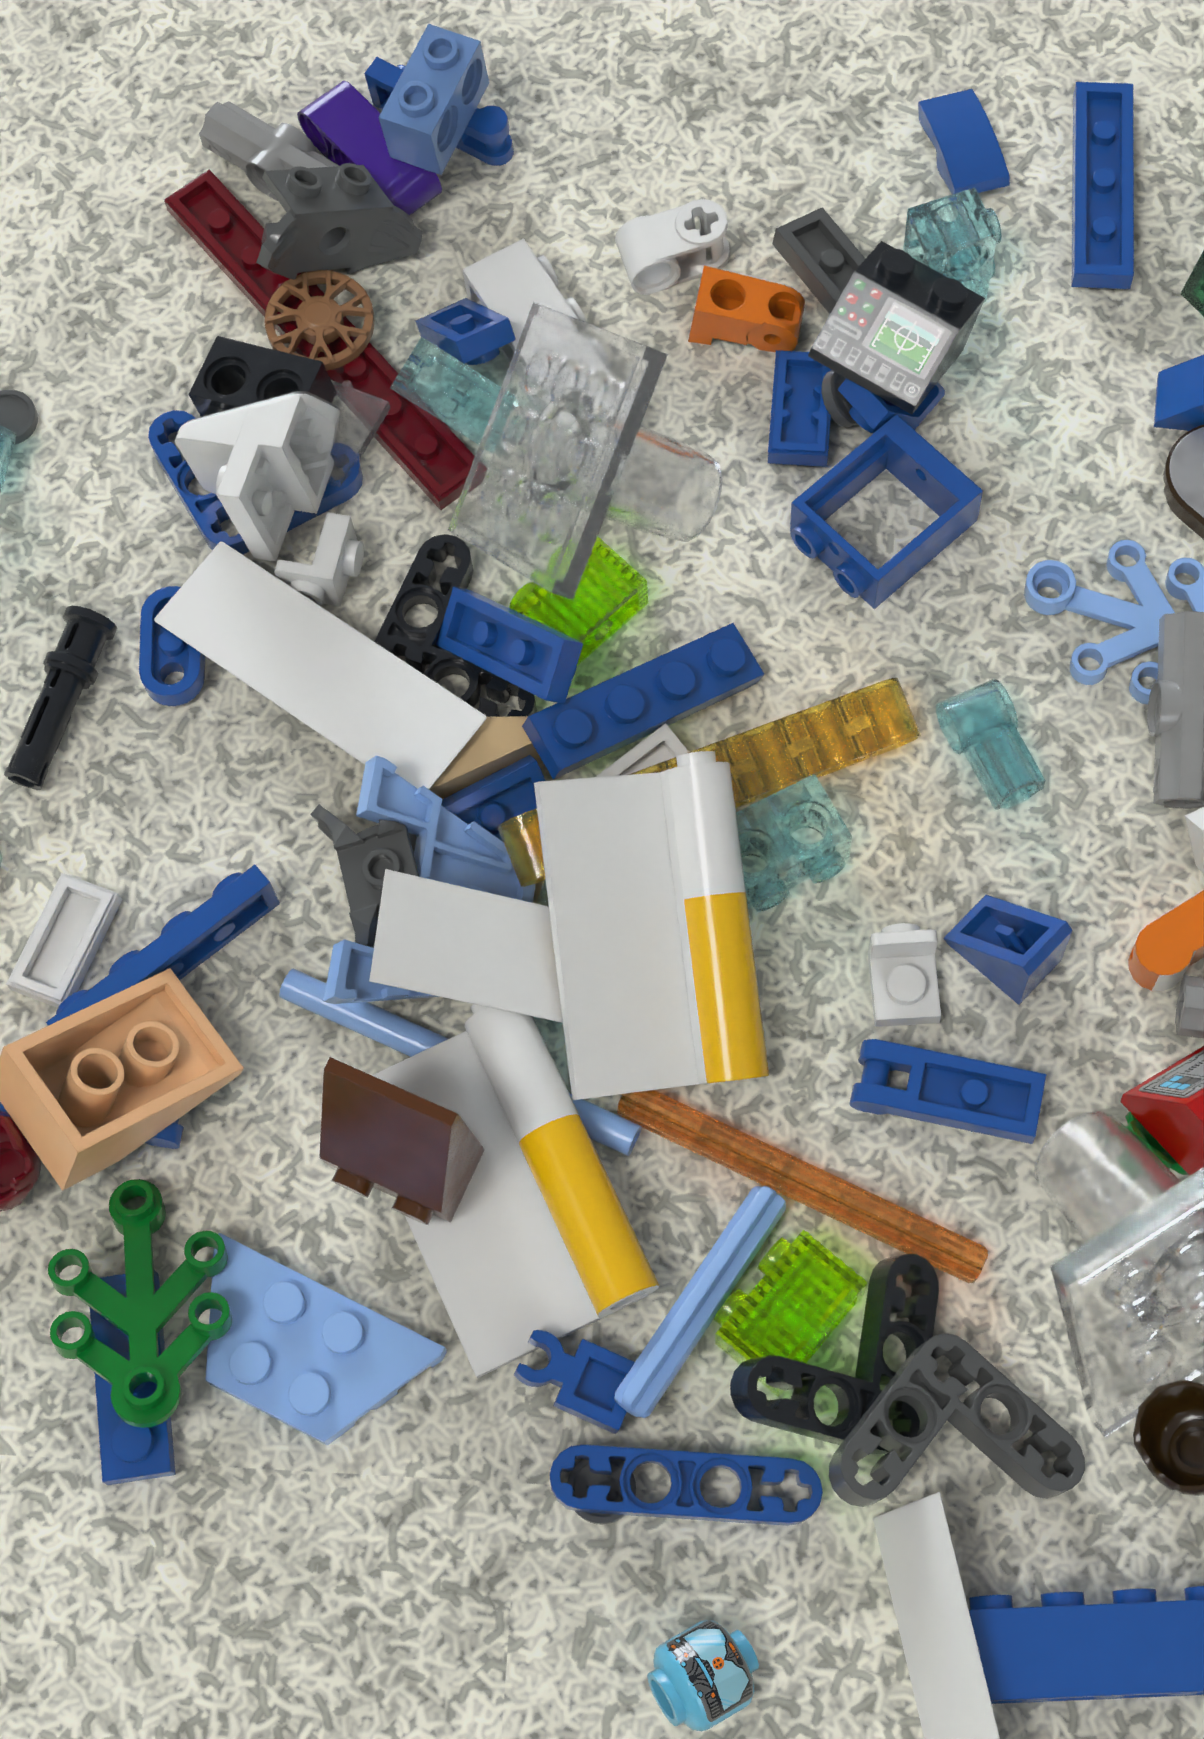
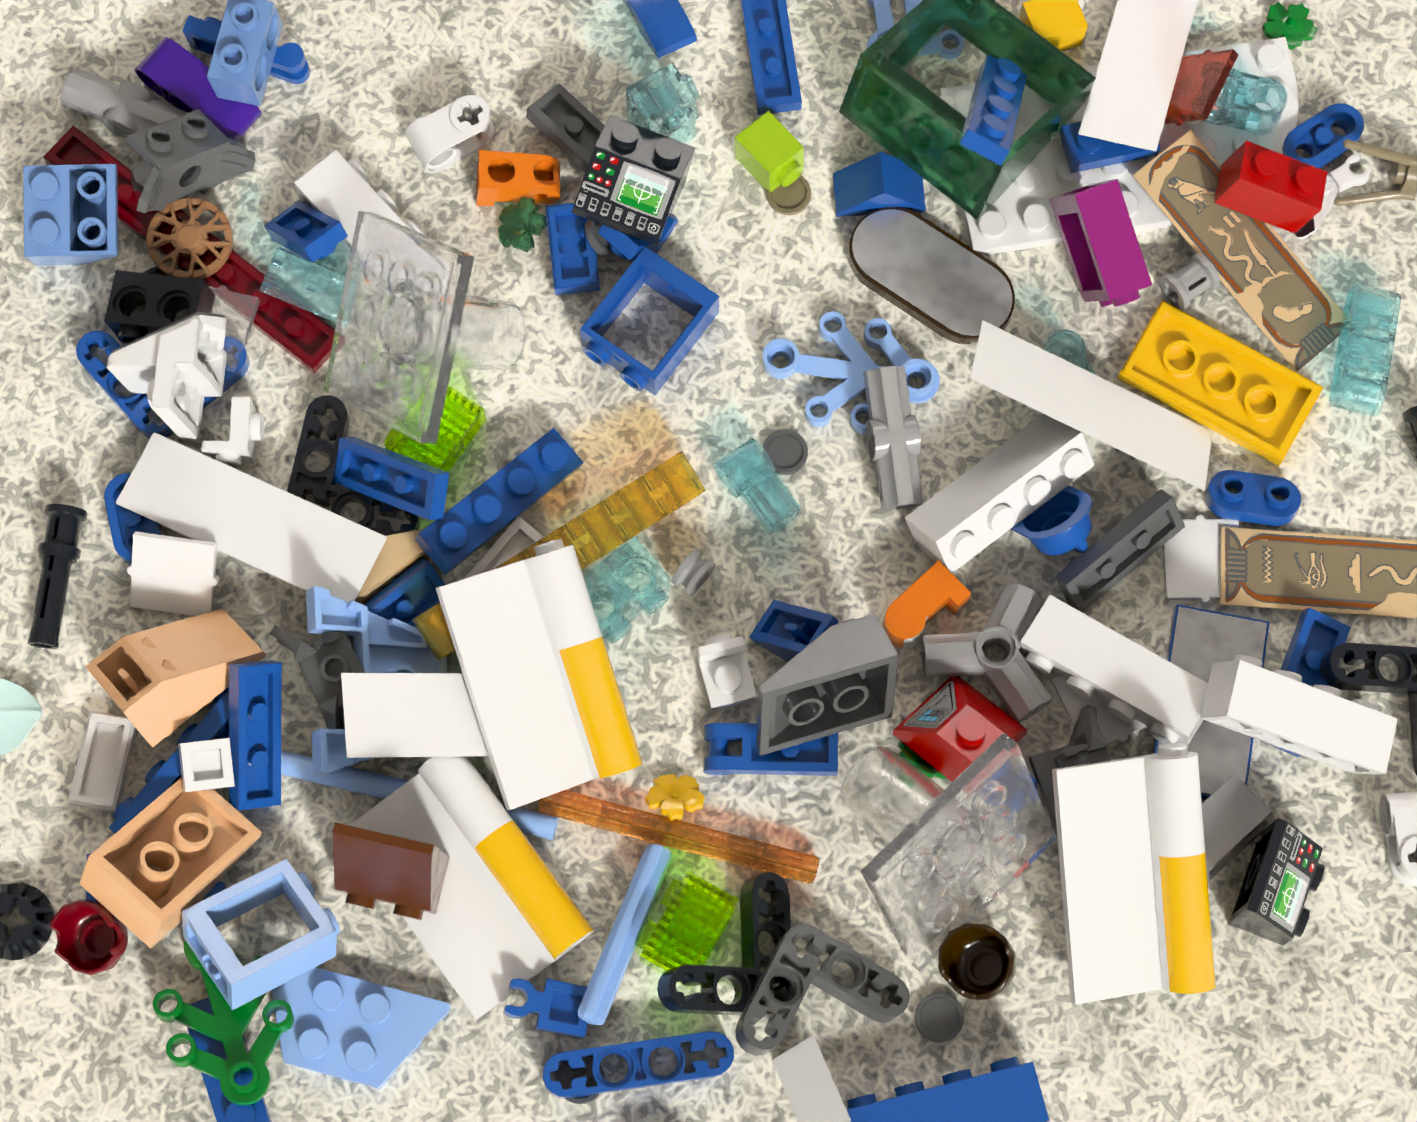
camera: 20 degrees left, 5 degrees up
(176, 263) = (70, 213): none -> medium blue slope
(176, 838) = (172, 670): none -> light nougat slope
(188, 963) = (206, 765): none -> white plate
(205, 720) = (172, 574): none -> white piece
(223, 1246) = (244, 983): none -> light blue window
(261, 938) = (255, 733): none -> blue plate
(740, 369) = (520, 224): none -> clear green plant
(805, 1127) = (675, 795): none -> yellow plant
(883, 838) = (693, 572): none -> light grey bush
(1038, 708) = (786, 451): none -> dark grey piece
(1044, 1015) = (829, 686): none -> dark grey slope
(1080, 330) = (770, 152): none -> lime brick
(1095, 388) = (790, 199): none -> dark tan piece
(1121, 1507) = (939, 1017): none -> dark grey piece

